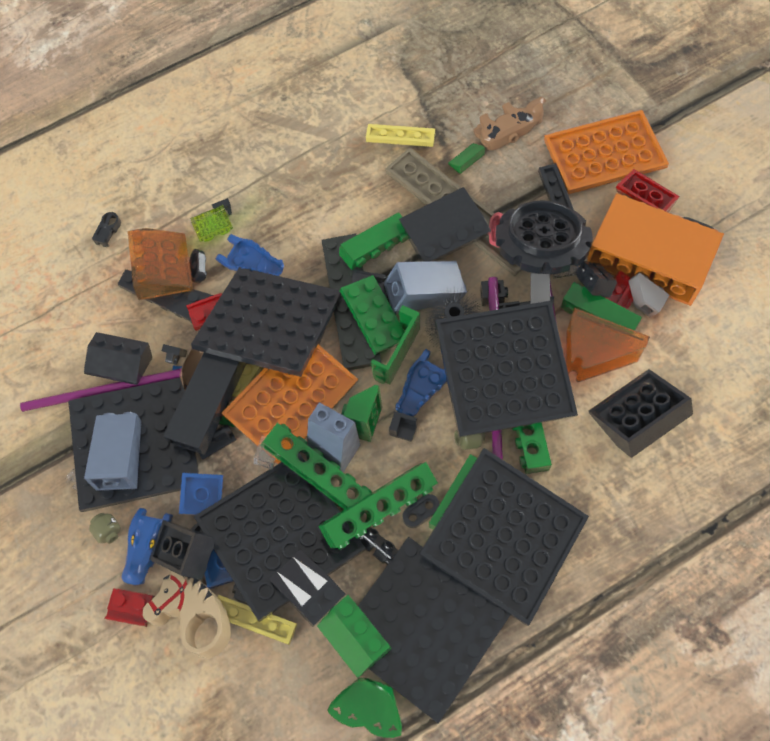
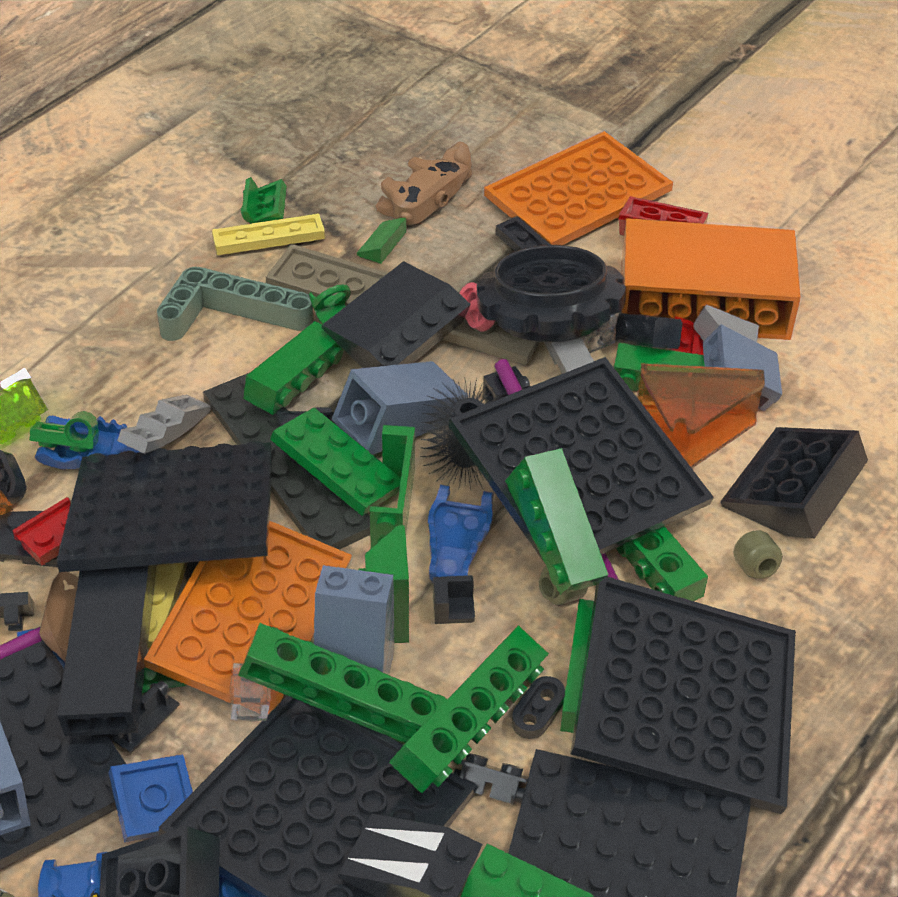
camera: 30 degrees left, 20 degrees down
(240, 252) = (51, 435): none -> green plate
(290, 259) = (165, 424): none -> light grey slope
(347, 165) = (233, 295): none -> sand green beam
(405, 110) = (263, 203): none -> green bracket
(413, 201) = (327, 304): none -> green piece
(468, 412) = (557, 521): none -> wedge
(591, 457) = (758, 554): none -> olive head
(646, 319) = (732, 350): none -> sand blue panel

